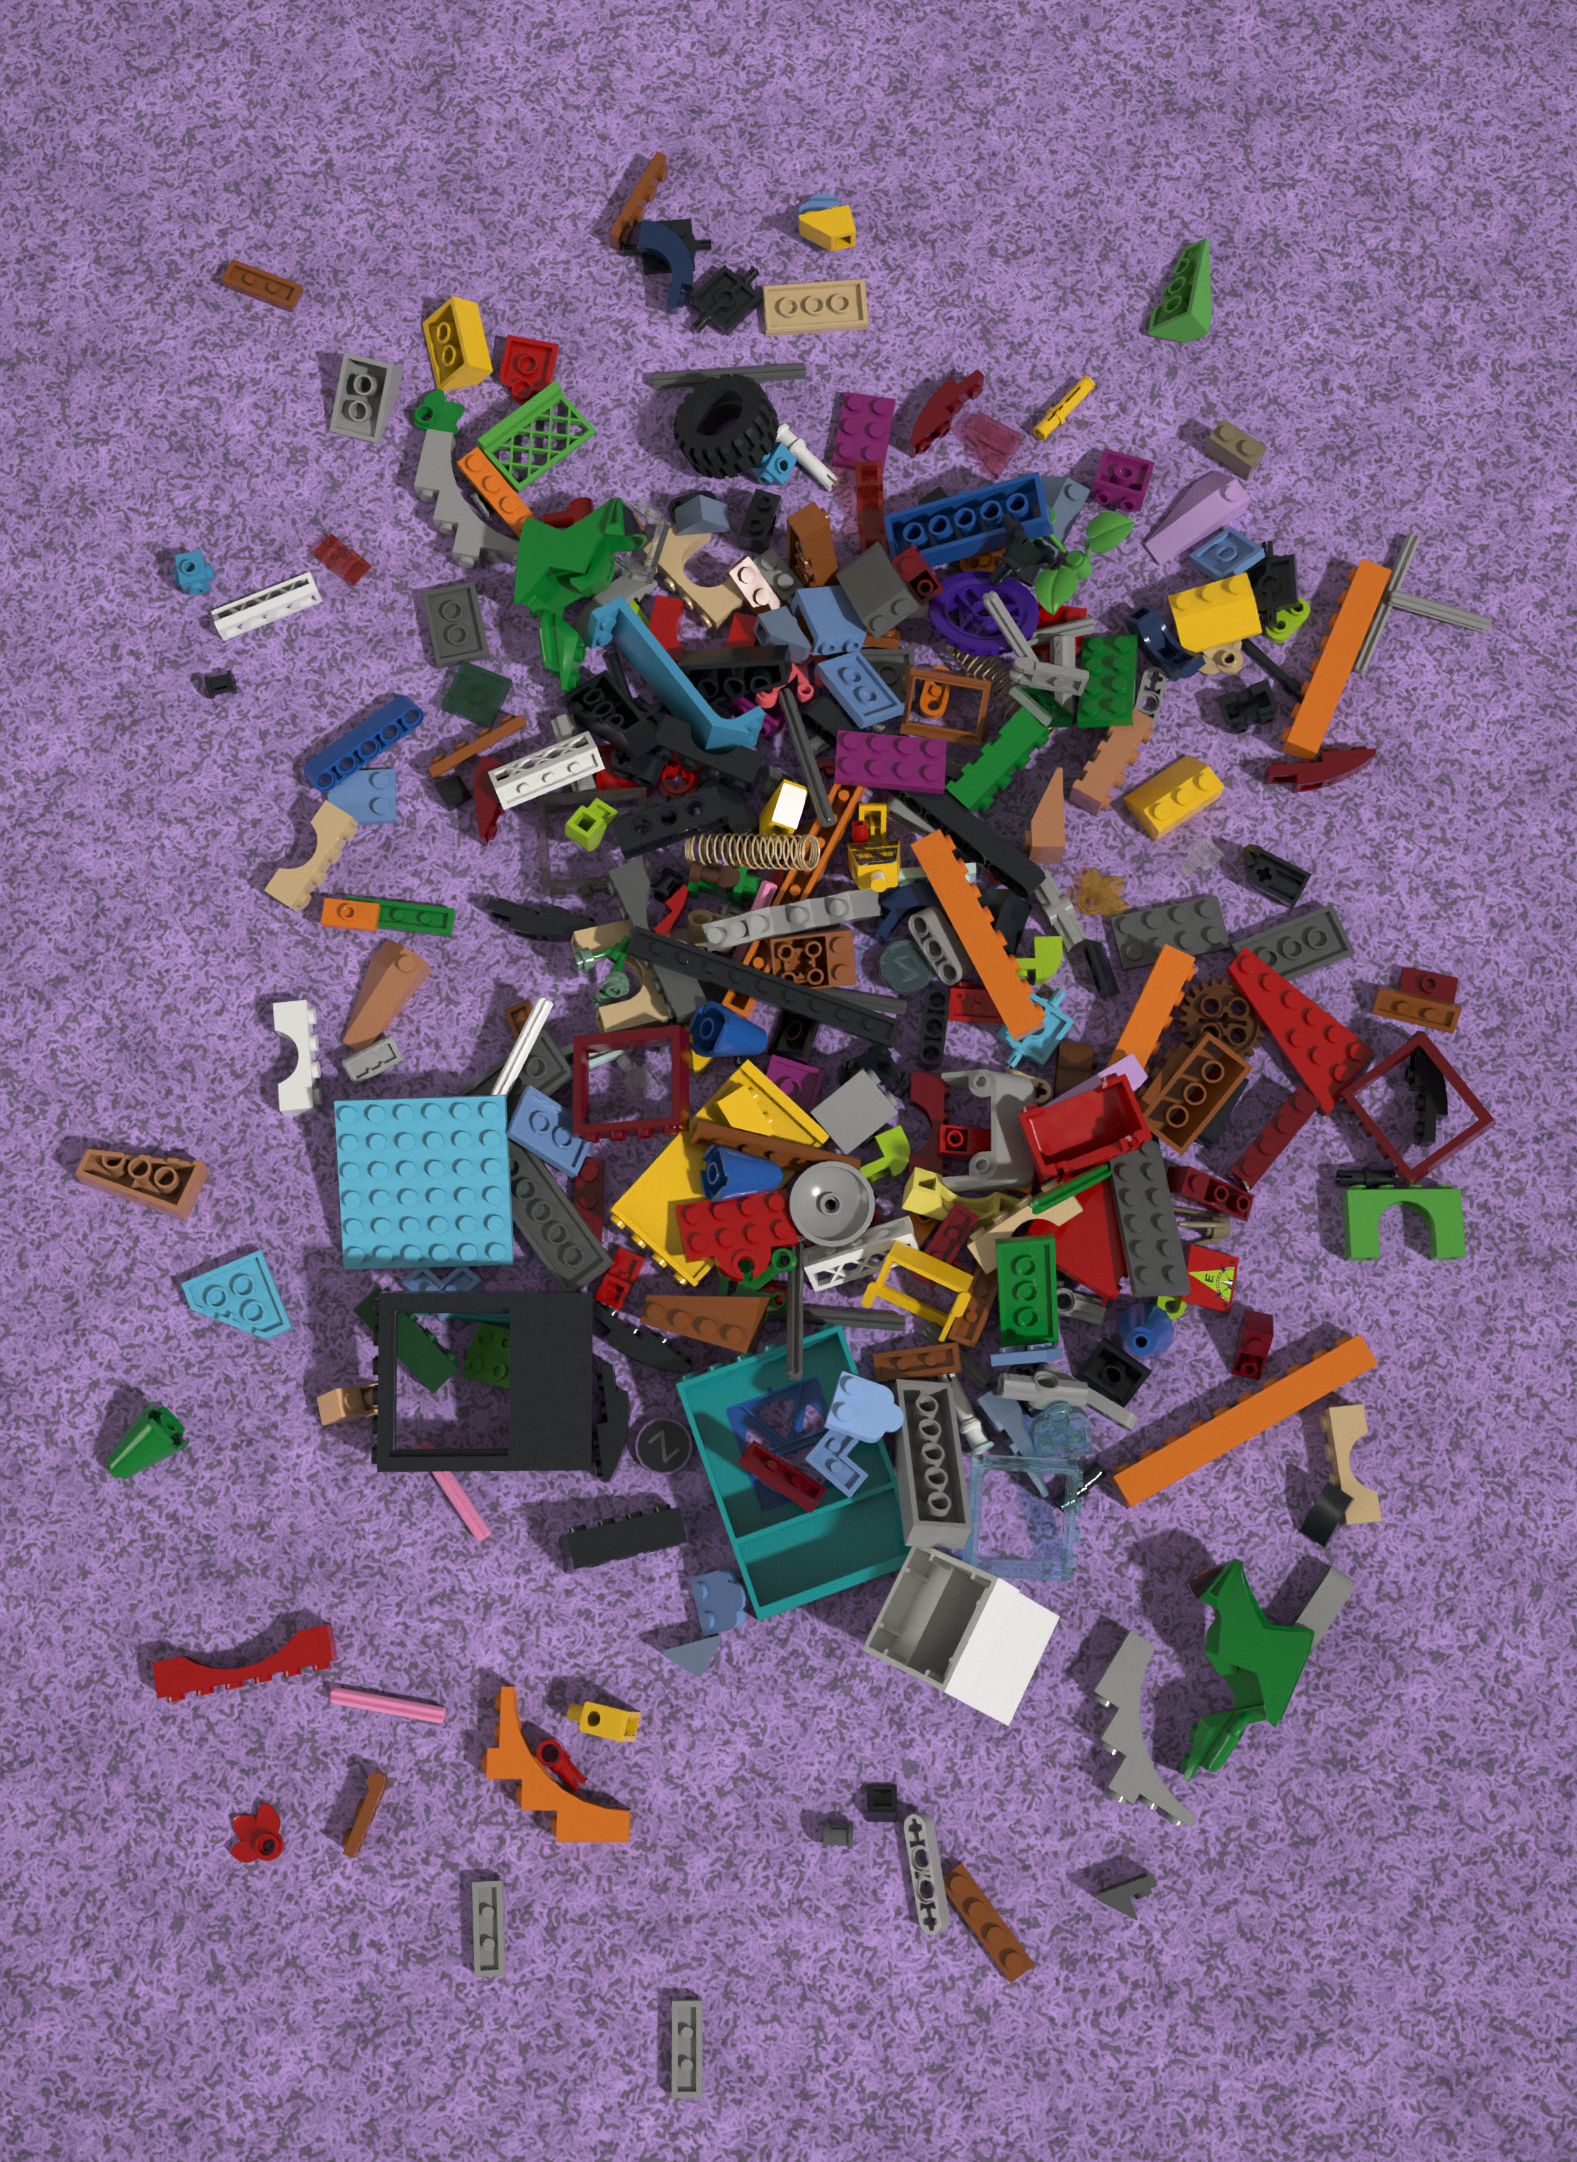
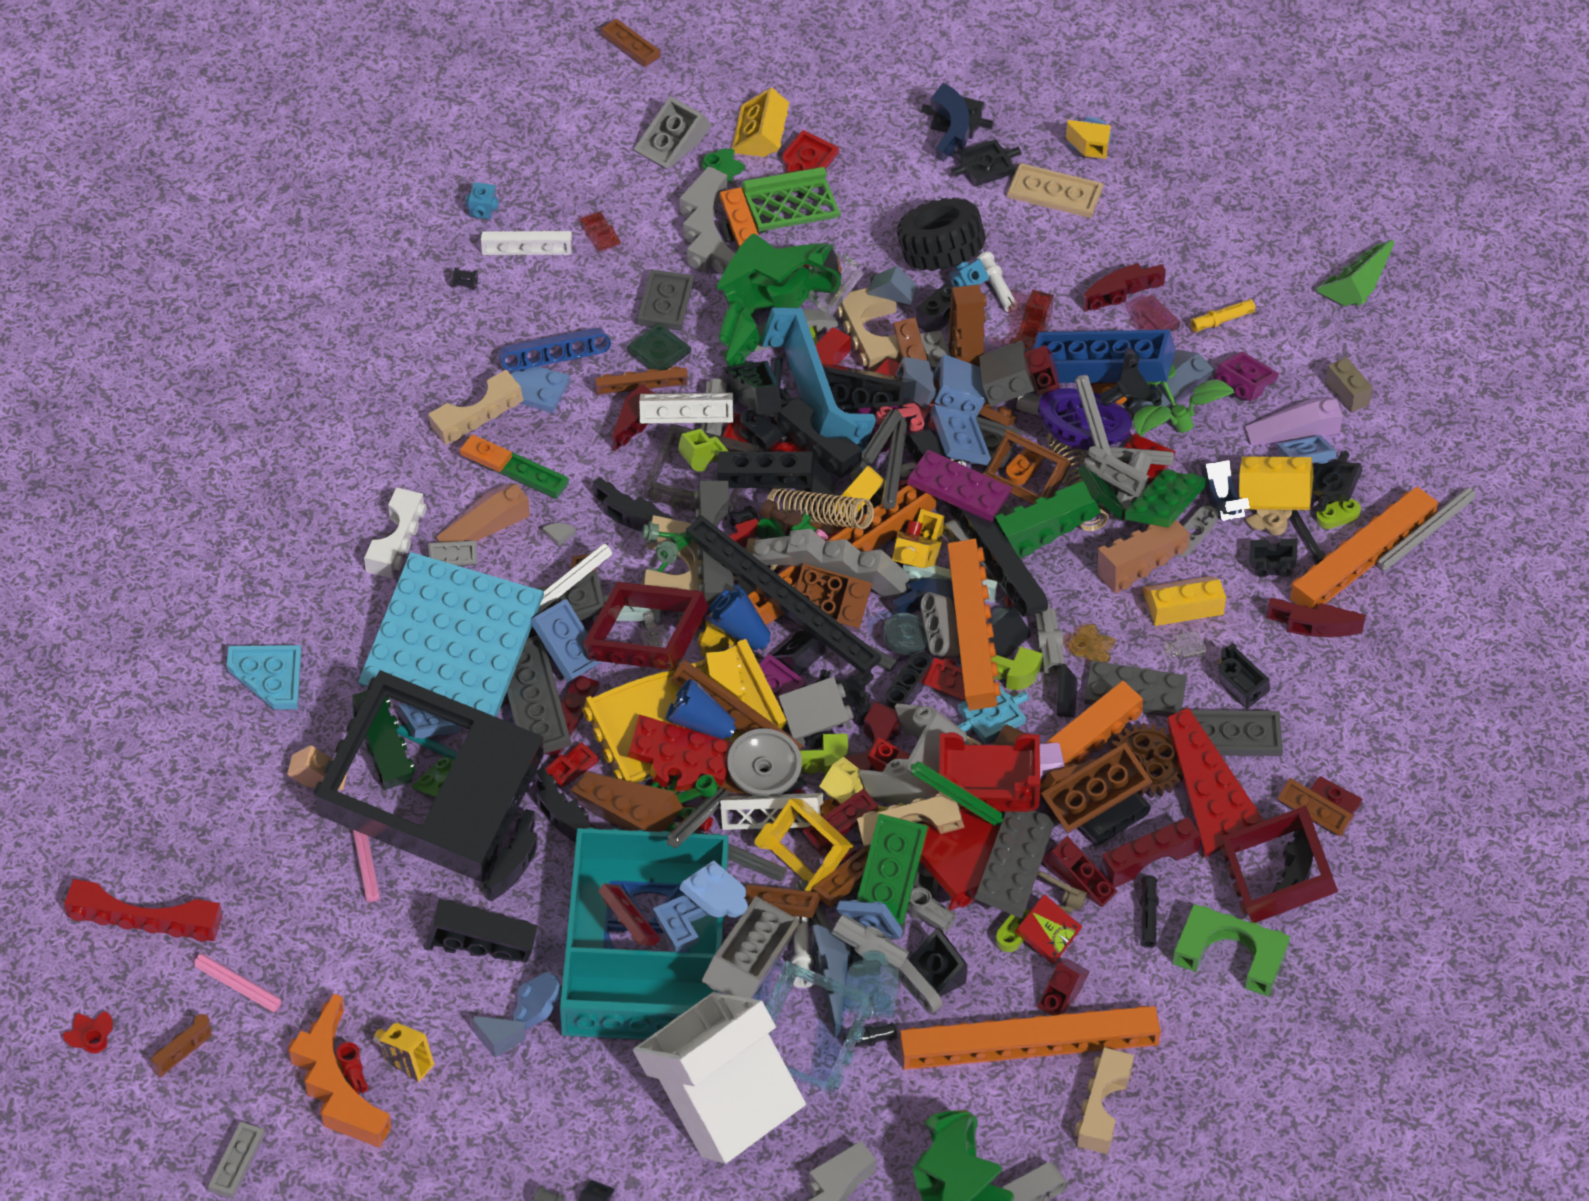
camera: 20 degrees right, 25 degrees down
(147, 1441) = (145, 737): green cone -> none
(155, 1183) = (237, 569): nougat wedge -> none
(453, 792) = (606, 406): black slope -> none
(474, 981) = (559, 532): none -> light grey tile
(635, 206) = (952, 76): dark orange plate -> none
(663, 1446) = (547, 889): black tile -> none
(758, 373) = (987, 217): dark grey axle -> none
(776, 727) = (881, 436): none -> dark grey axle
(863, 430) = (1054, 276): magenta plate -> none
(1046, 834) = (1067, 574): nougat slope -> none
(1145, 1321) = (977, 943): blue cone -> none
(1298, 1210) = (1149, 903): none -> black pin
(1326, 1514) = (1061, 1126): black slope -> none
(1365, 1177) = (1215, 905): black pin -> none
(1439, 611) = (1467, 546): light grey axle -> none

